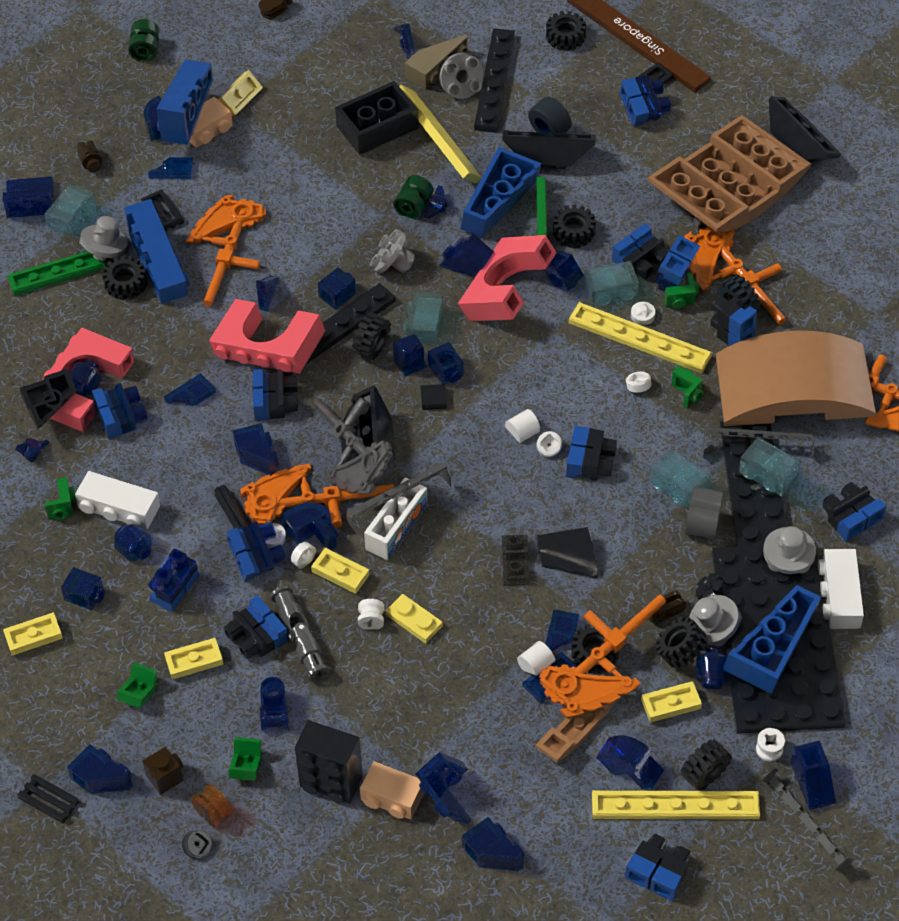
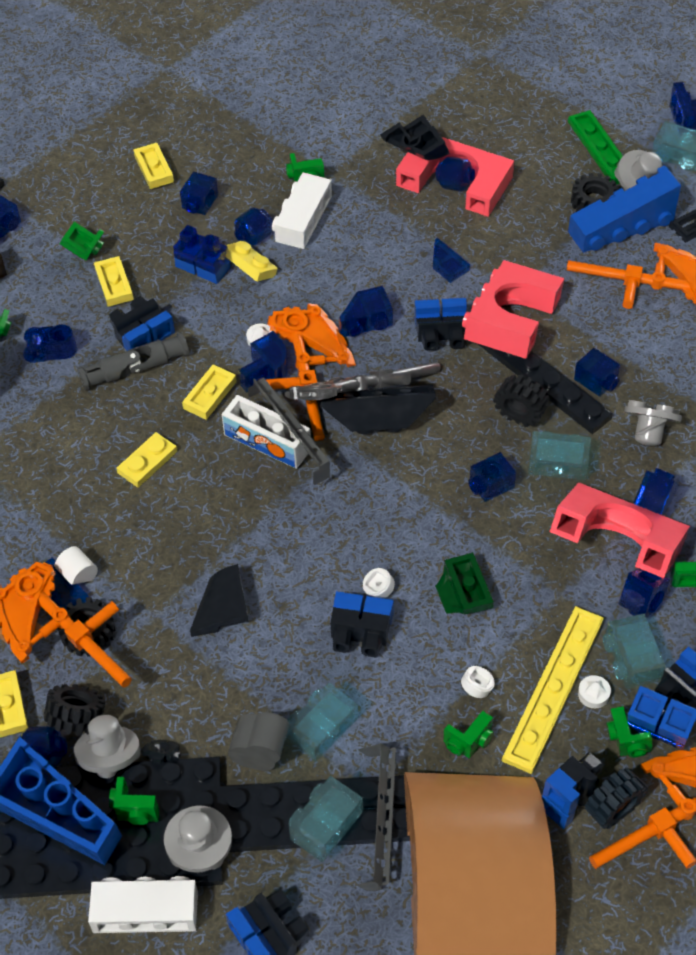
camera: 90 degrees right, 0 degrees up
(31, 448) = (369, 145): clear blue piece -> none
(116, 410) = (416, 201): hips -> none
(184, 540) = (250, 261): none -> light yellow plate
(230, 507) = (296, 299): black axle -> none
(251, 550) = (227, 323): hips -> none
(265, 291) = (587, 309): clear blue tile -> none
(303, 555) = (230, 358): white tile -> none
(371, 614) = (150, 418): white wheel -> none
(409, 355) = (503, 438): clear blue brick -> none
(433, 397) = (448, 471): black tile -> none
(515, 560) = (219, 552): clear smoke slope -> none
(523, 425) = (406, 557): white brick -> none
(554, 387) = (463, 586): none -> dark green slope
(561, 629) = (125, 596): clear blue tile -> none
(672, 607) = (134, 691): dark brown arm -> none
(766, 599) = (132, 808): none -> green bracket

